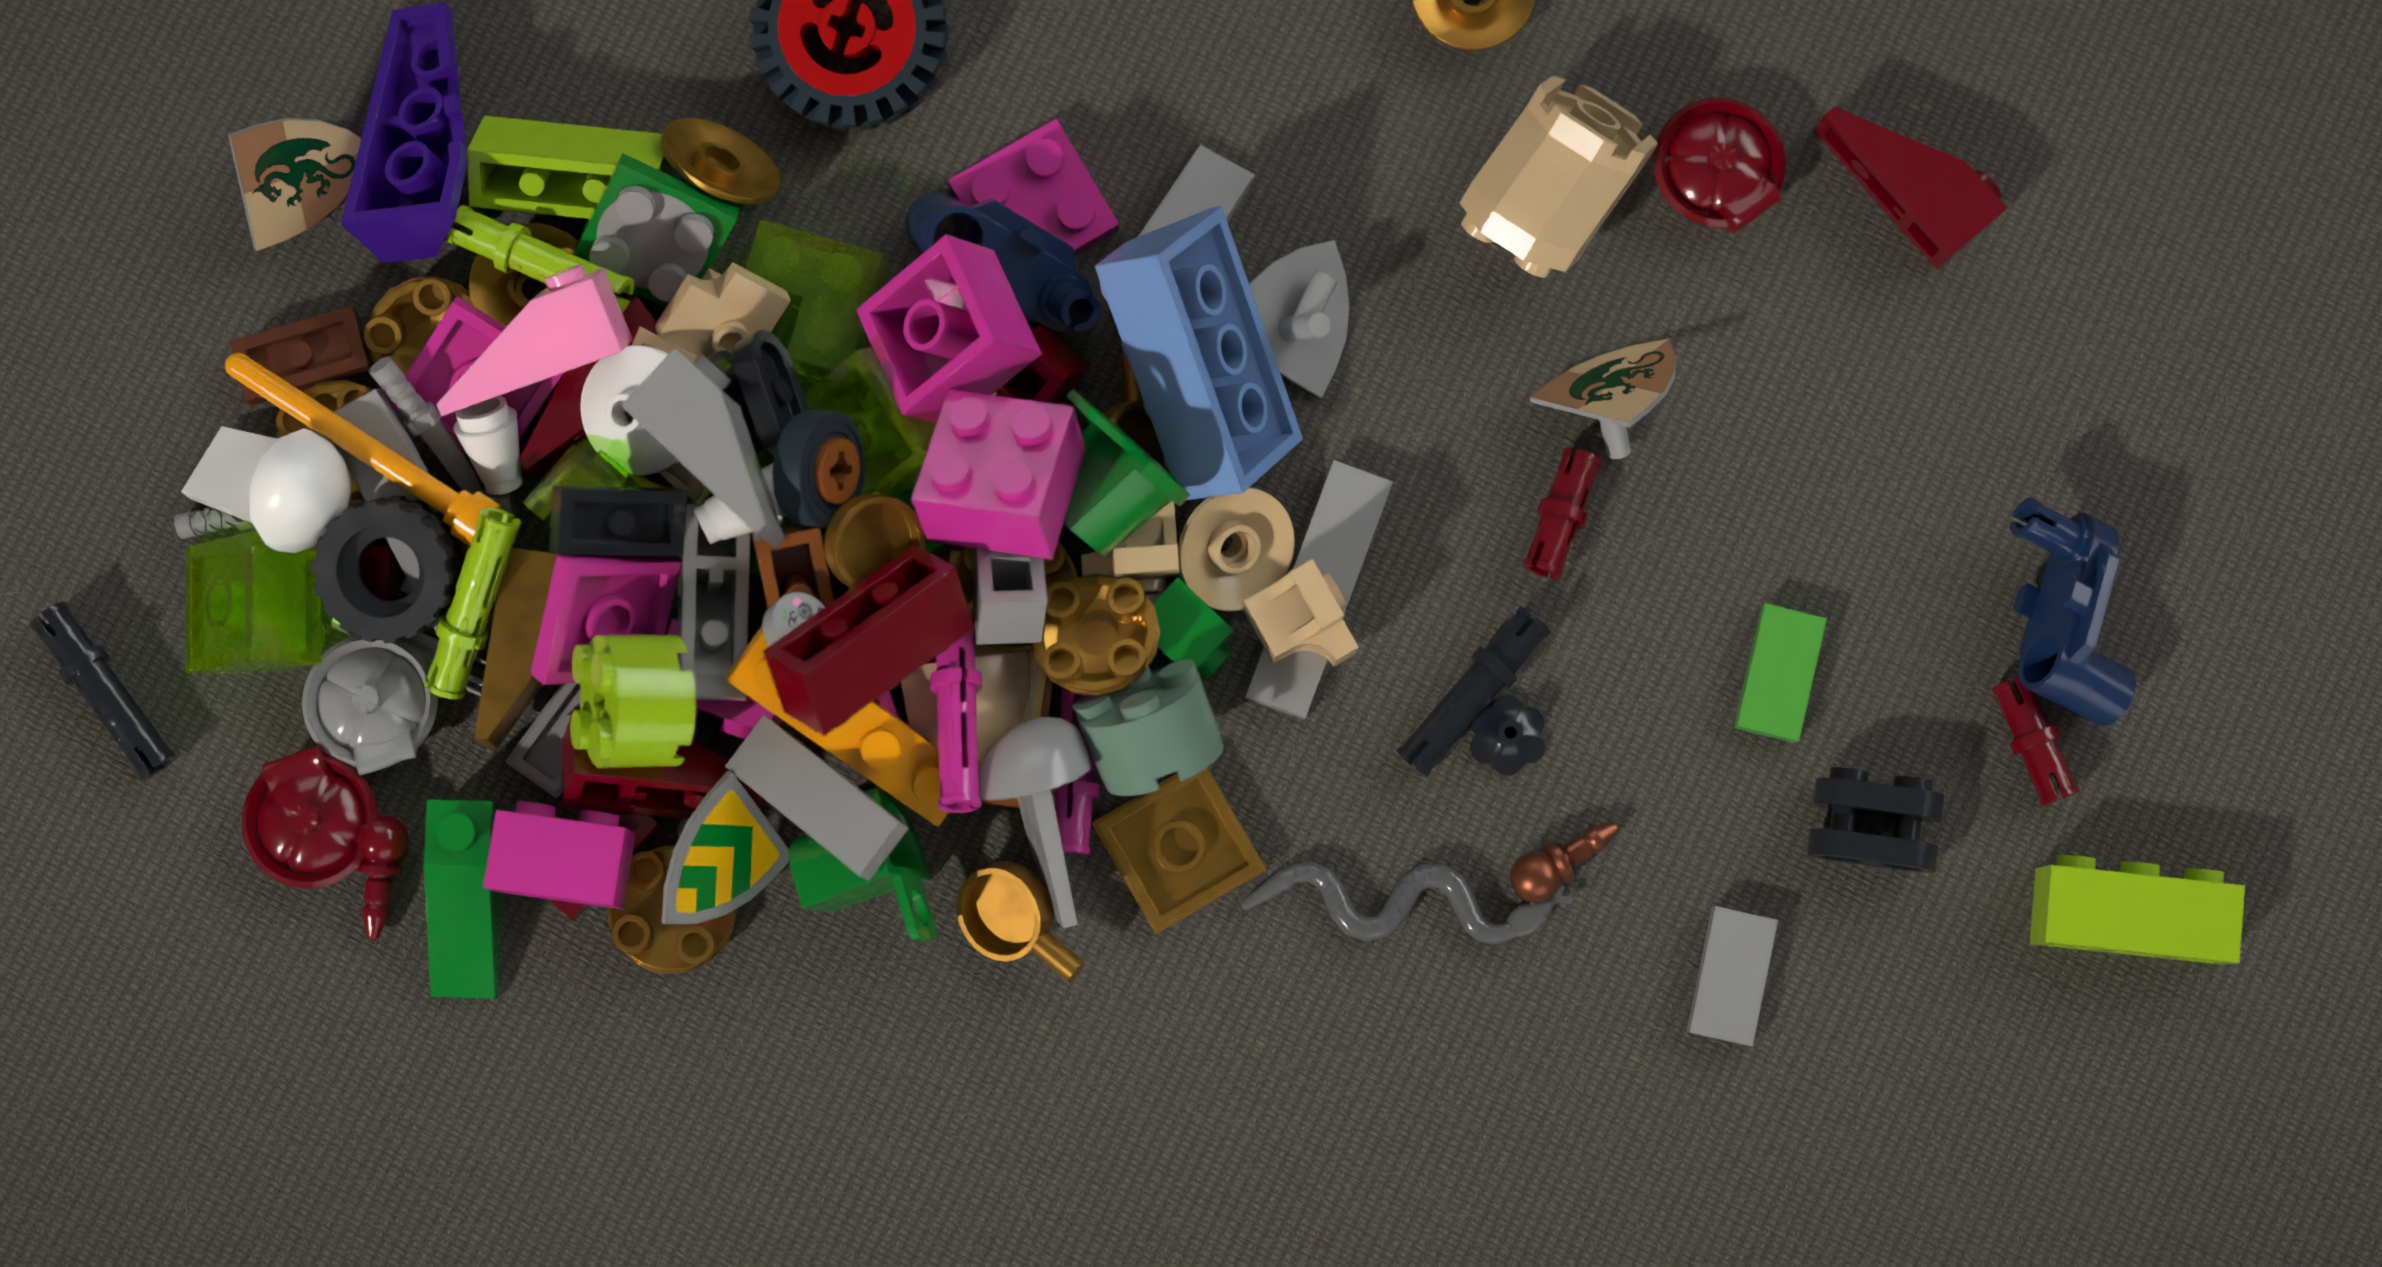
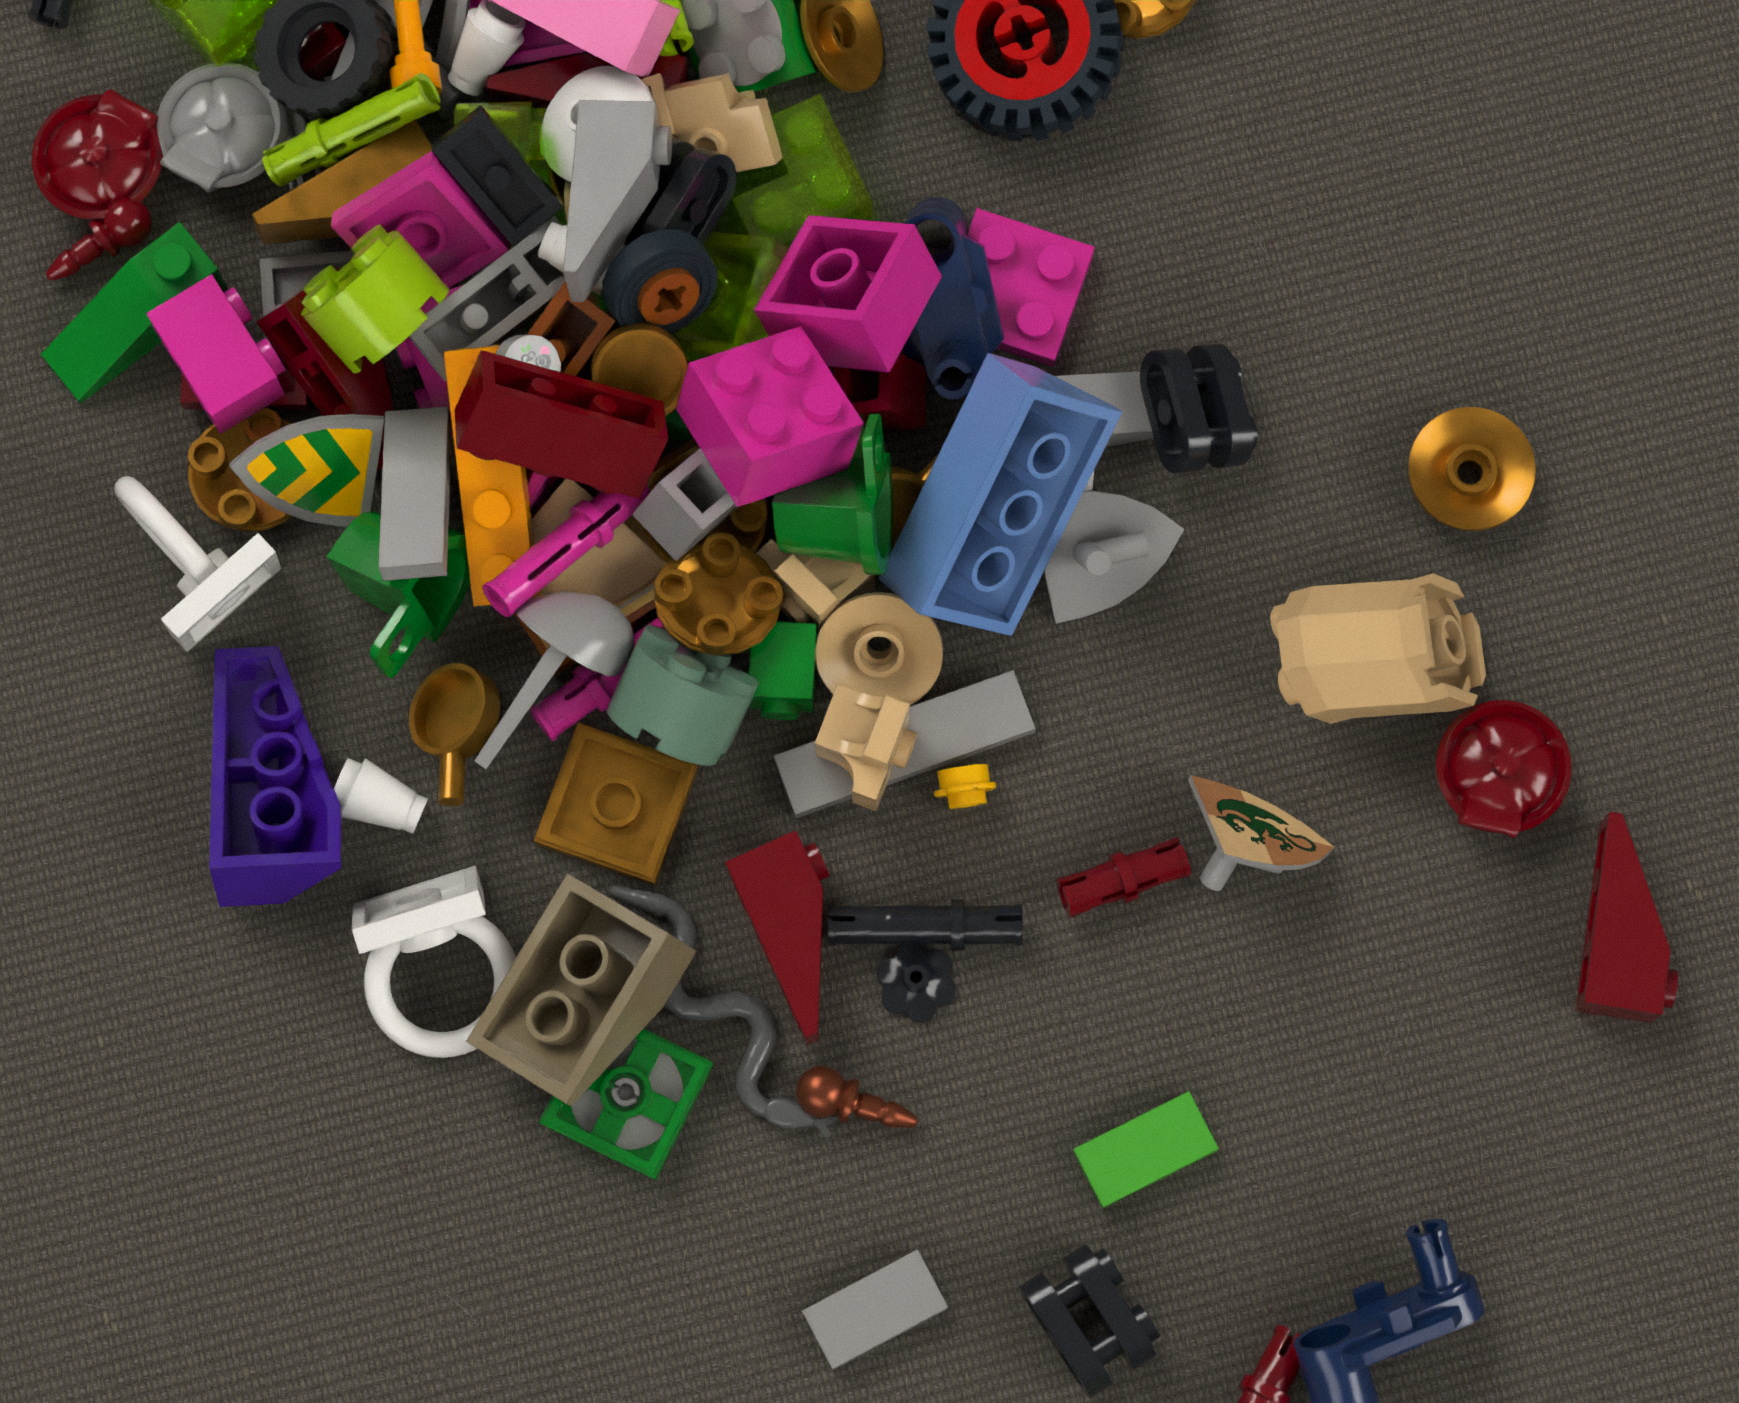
camera: 55 degrees right, 5 degrees down
(743, 1014) = (212, 581): none -> white tile
(951, 1106) = (270, 795): none -> dark purple wedge
(1018, 1027) = (377, 797): none -> white cone
(1150, 1069) = (416, 921): none -> white tile
(1252, 150) = (1197, 408): none -> black brick
(1312, 998) = (579, 991): none -> dark tan slope
(1380, 789) = (786, 909): none -> dark red slope
(1391, 571) = (964, 785): none -> yellow plate
(1412, 1026) = (635, 1104): none -> green piece

